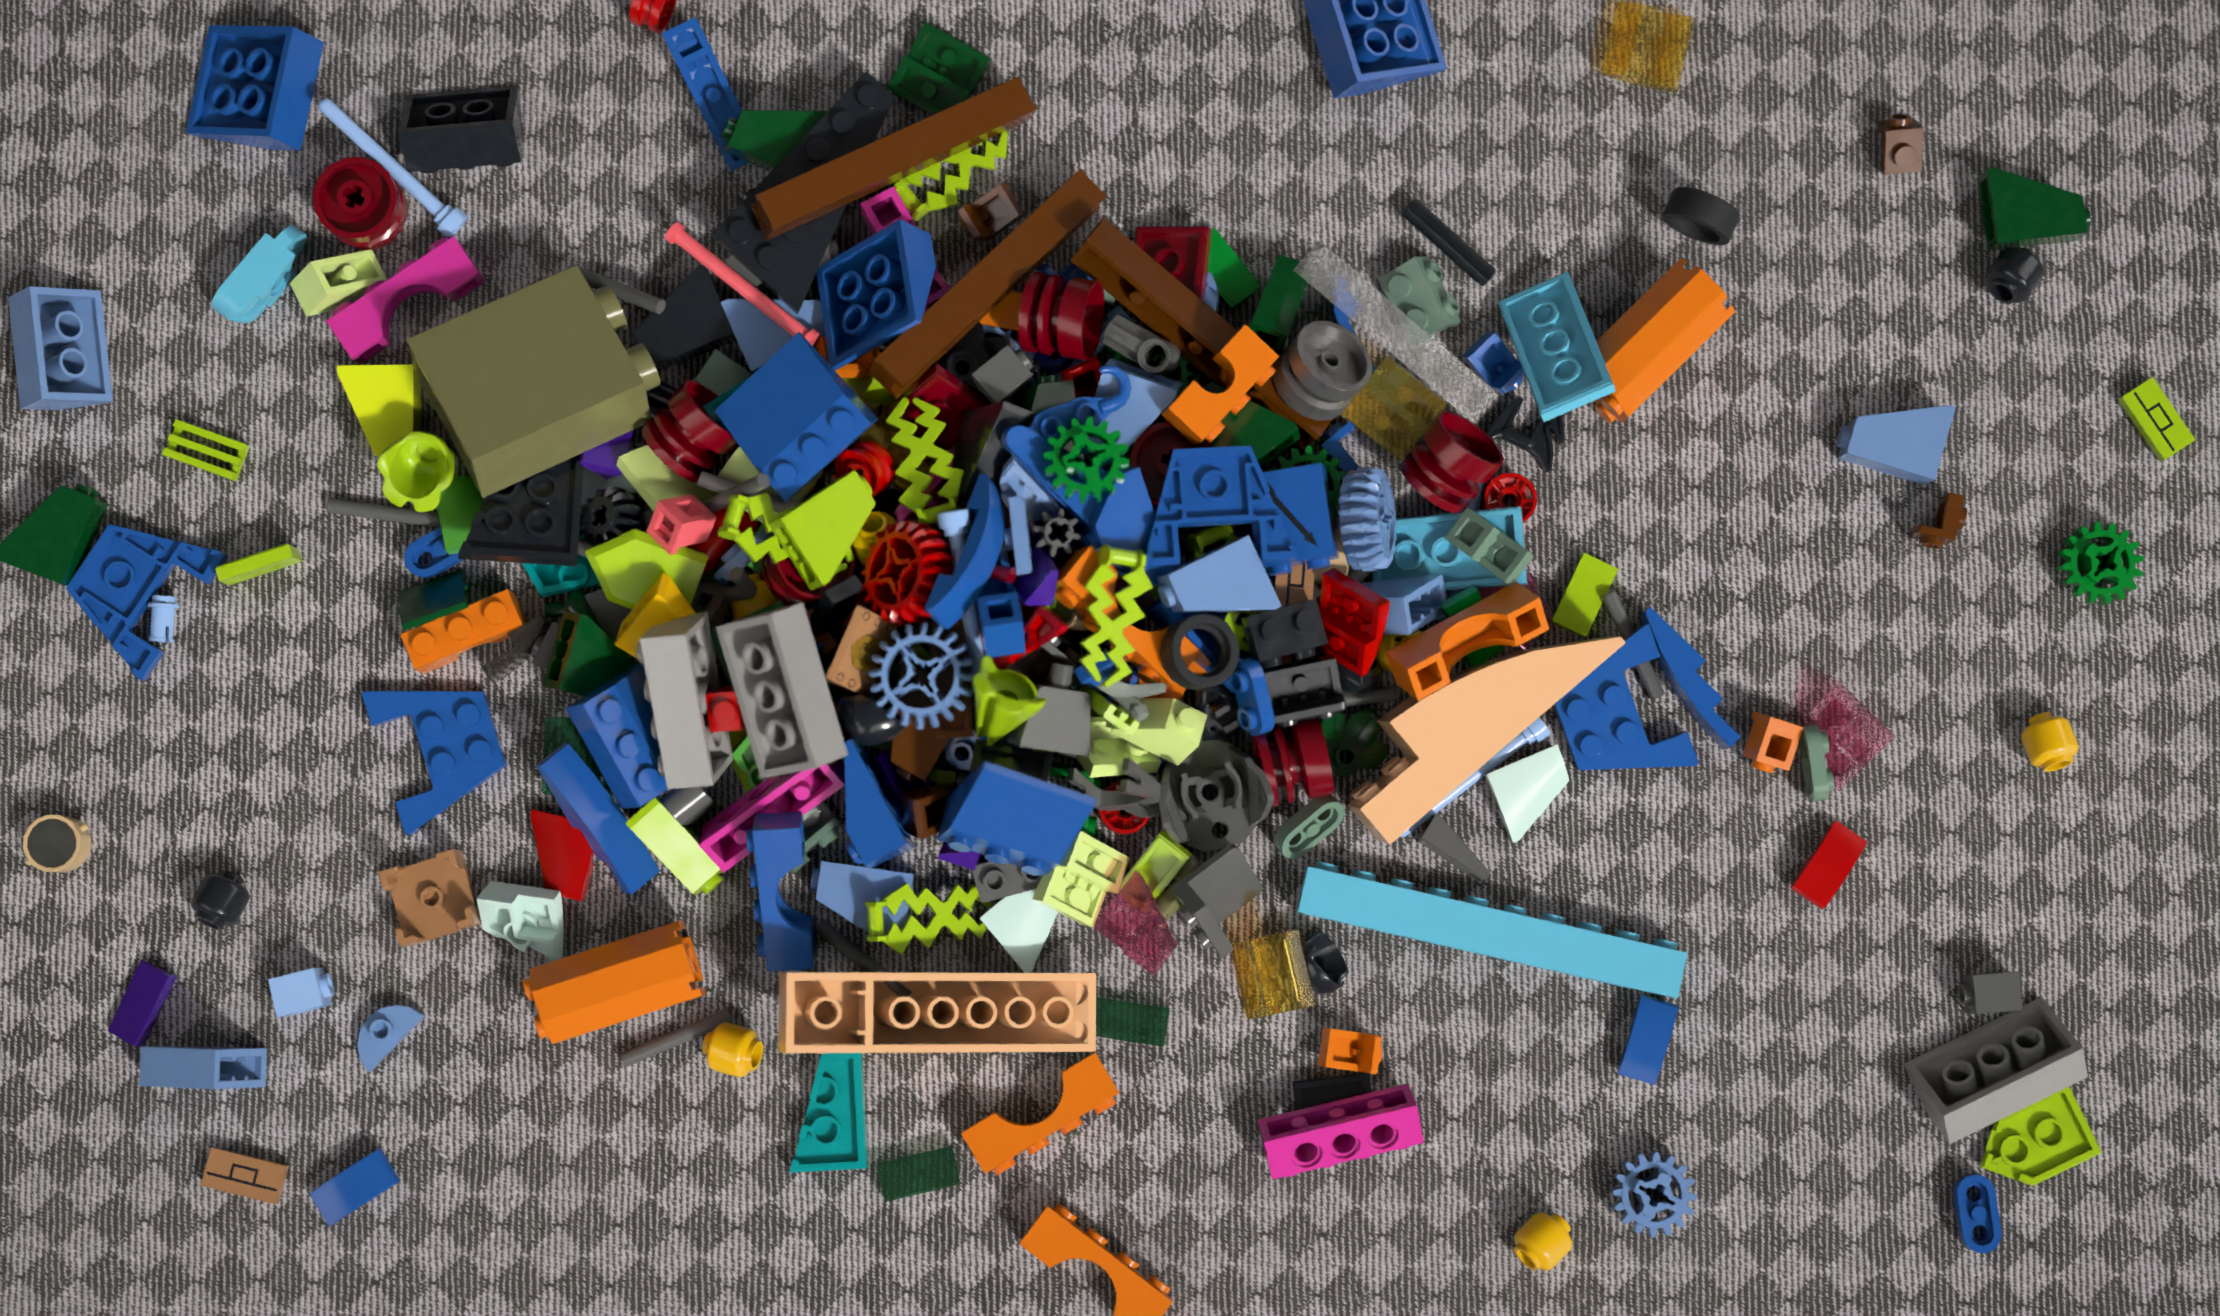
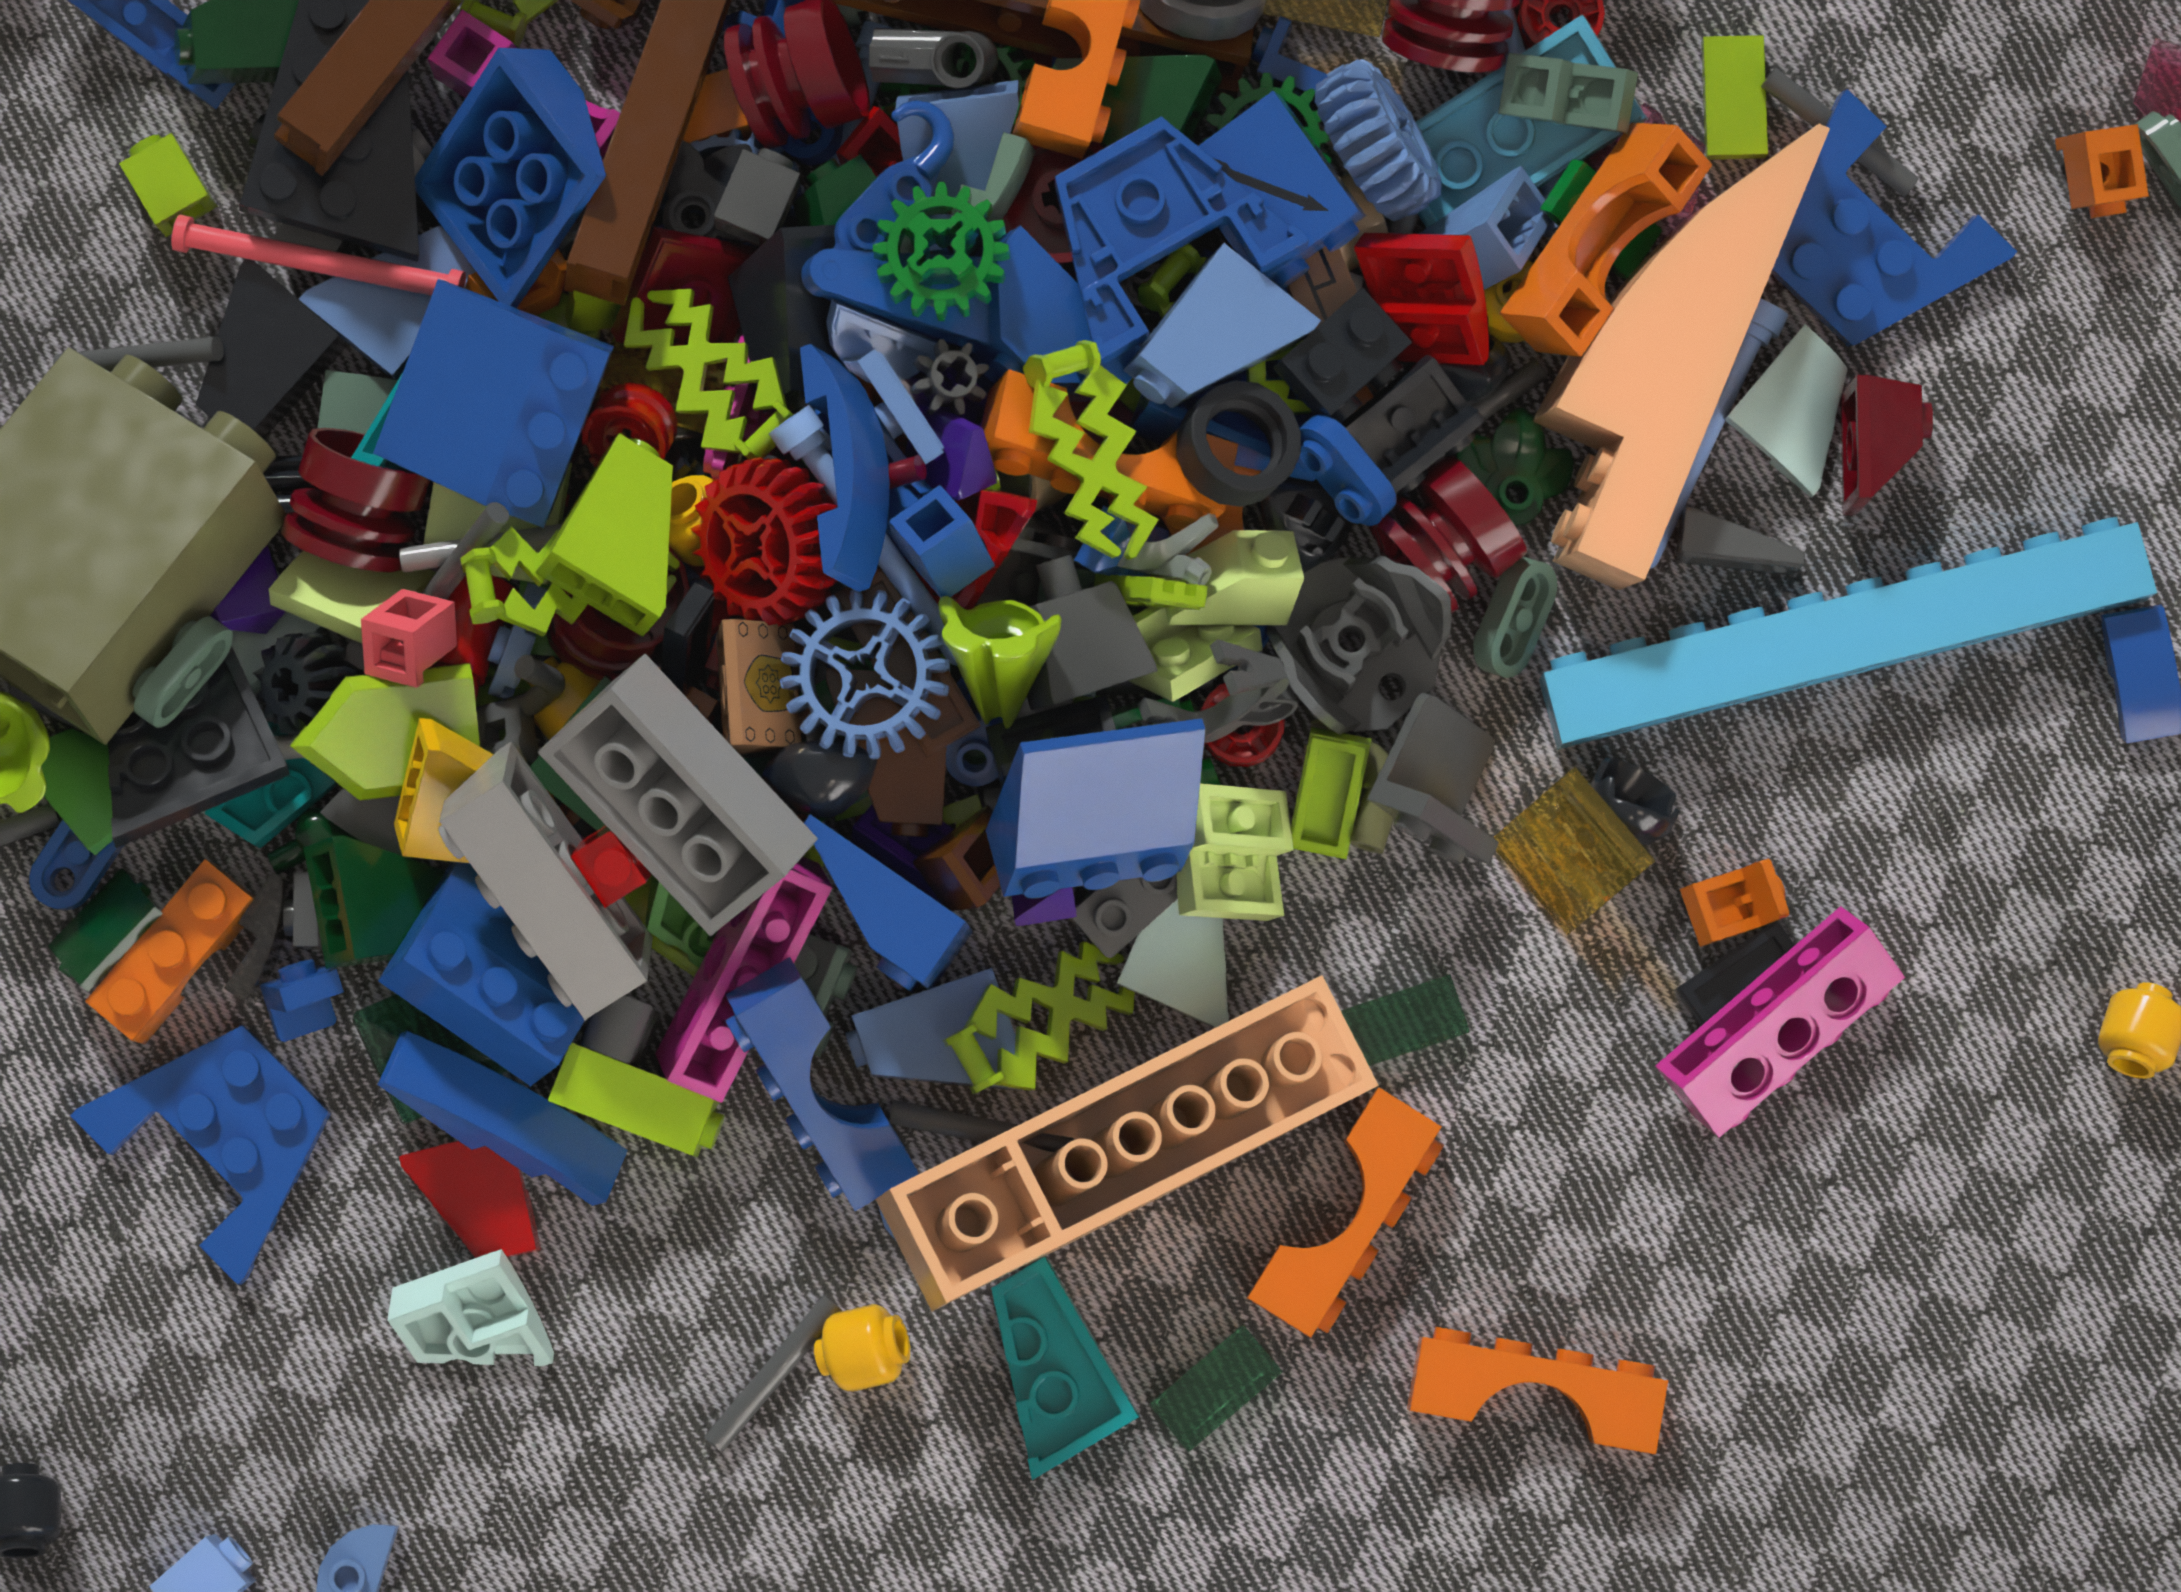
camera: 20 degrees left, 0 degrees up
(432, 898) = (322, 1353): medium nougat panel -> none
(521, 694) = (301, 999): none -> blue bracket
(535, 483) = (194, 657): none -> sand green plate
(614, 983) = (646, 1338): orange brick -> none
(682, 198) = (166, 181): none -> lime brick
(1138, 925) = (1346, 879): clear pink slope -> none
(1147, 435) = (1006, 178): none -> sand green slope
(1567, 829) = (1879, 434): none -> dark red slope
(1679, 665) = (1920, 128): blue slope -> none

